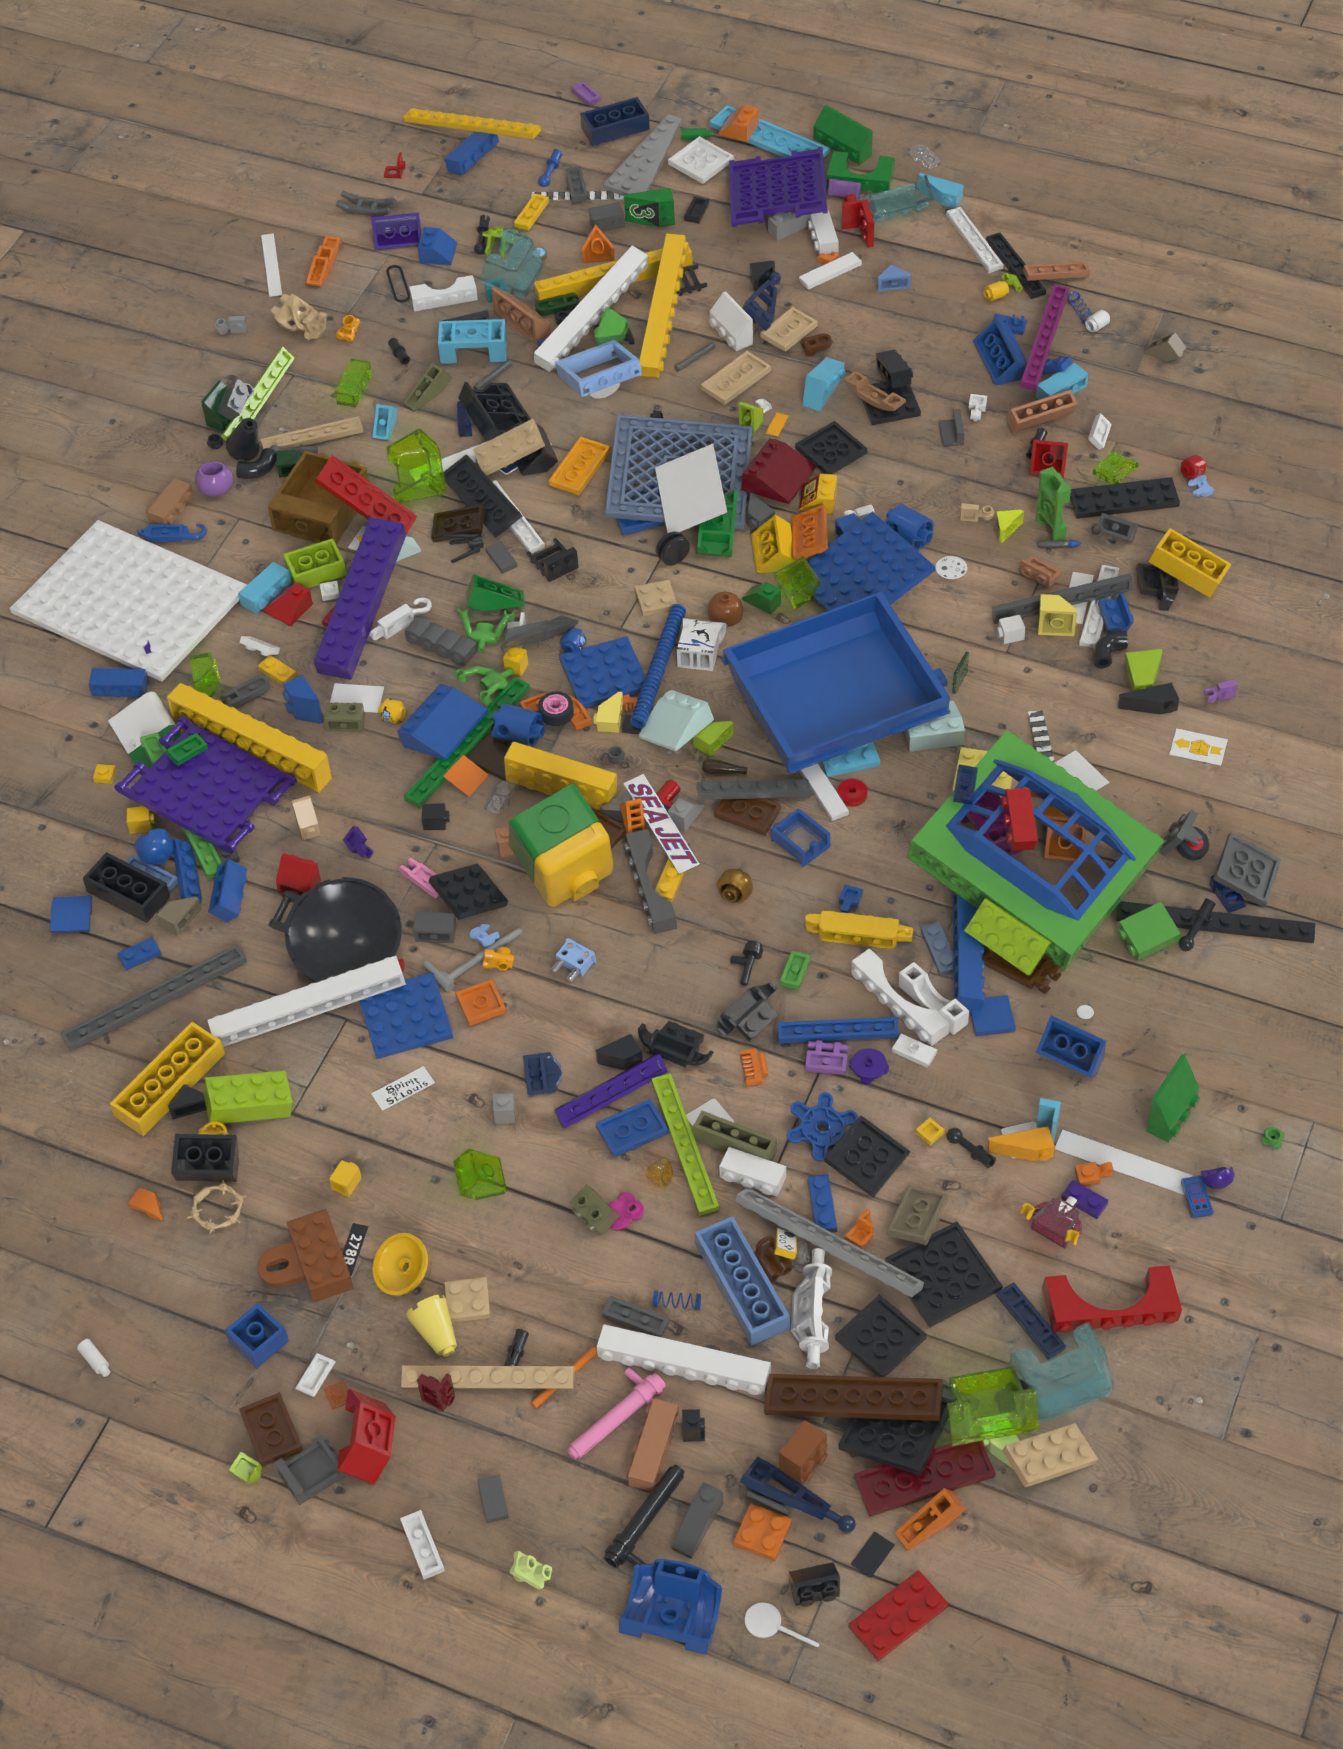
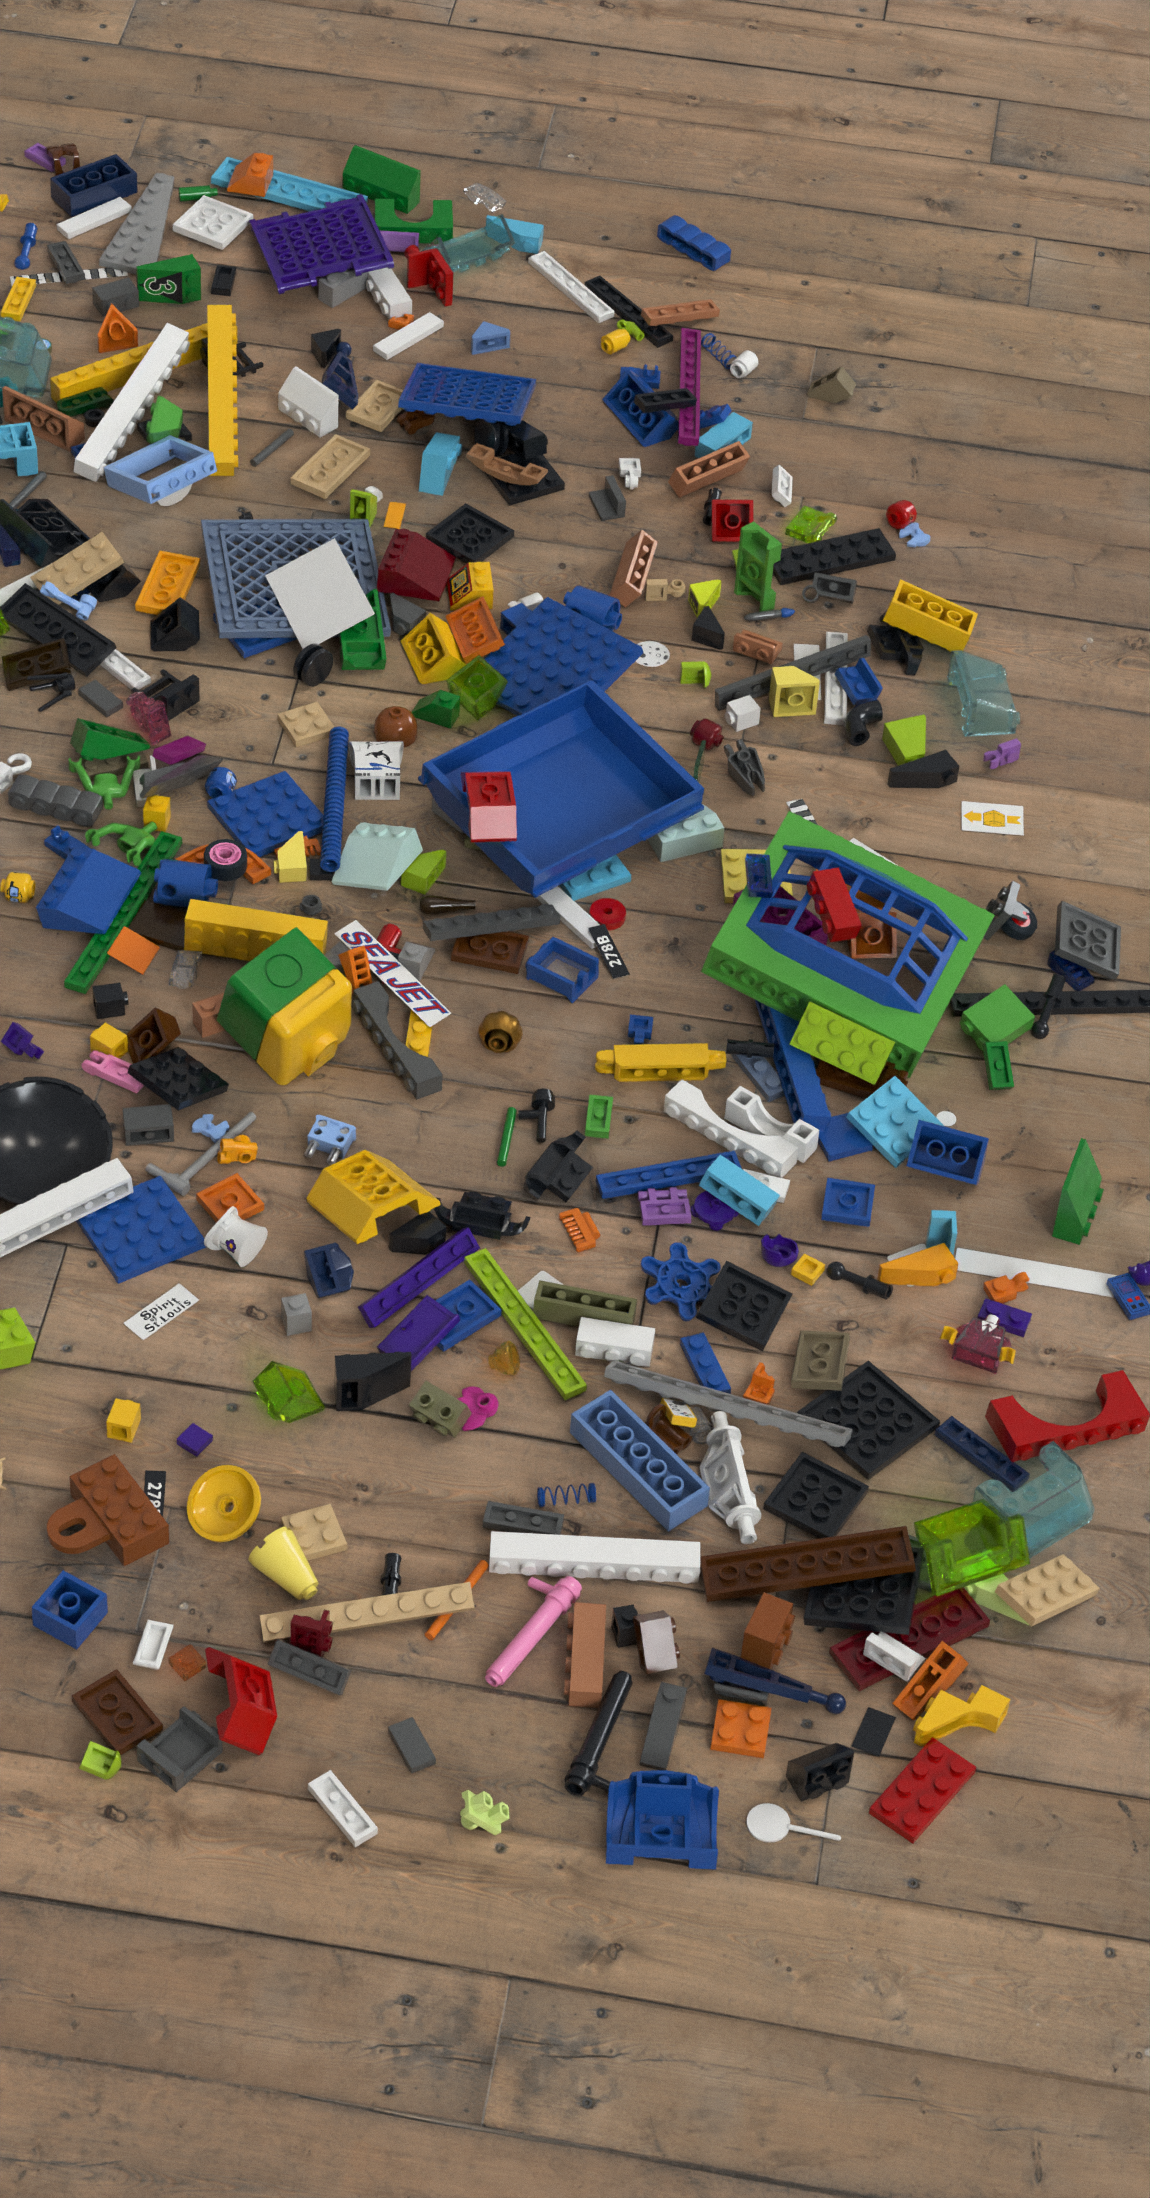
camera: 20 degrees left, 5 degrees down
(397, 1203) = (194, 1439): none -> dark purple tile
(424, 852) = (109, 1041): none -> yellow brick
(430, 1416) = (309, 1667): none -> dark grey plate
(437, 675) = (62, 842): none -> blue plate
(459, 851) = (152, 1035): none -> reddish brown slope
(474, 1035) = (236, 1237): none -> white hat
(508, 478) = (84, 606): none -> light blue brick
(532, 579) = (150, 716): none -> clear pink piece
(543, 1174) = (369, 1378): none -> black slope
(546, 609) = (179, 750): none -> magenta tile
(572, 1014) = (364, 1189): none -> yellow slope
(575, 504) = (175, 627): none -> black slope
(593, 90) = (57, 151): none -> reddish brown piece
(597, 1142) = (428, 1328): none -> dark purple door
(609, 148) = (94, 218): none -> white tile
(709, 1445) = (656, 1641): none -> brick
(716, 977) = (506, 1137): none -> green bar
(765, 693) = (490, 806): none -> red slope
(844, 825) = (609, 951): none -> black sticker
(859, 327) = (467, 393): none -> blue plate
(870, 365) = (492, 435): none -> black head
(890, 1053) = (739, 1190): none -> medium azure brick
(904, 1491) = (893, 1655): none -> white panel
(909, 1111) = (779, 1250): none -> dark purple hair
(933, 928) = (750, 1048): none -> black pin
(936, 1552) = (949, 1714): none -> yellow arch
(955, 492) = (633, 568): none -> nougat brick
(976, 644) = (708, 731): none -> dark red head
(980, 1076) = (848, 1202): none -> blue plate
(982, 589) = (695, 673): none -> lime plate
(999, 677) = (745, 767): none -> dark grey hinge
(1001, 552) = (708, 630): none -> black slope
(1017, 348) = (665, 400): none -> black plate
(1033, 1004) = (890, 1119): none -> medium azure plate
(1085, 210) = (695, 243): none -> blue brick
(1139, 972) = (998, 1065): none -> green plate
(1218, 636) = (983, 695): none -> clear light blue windscreen

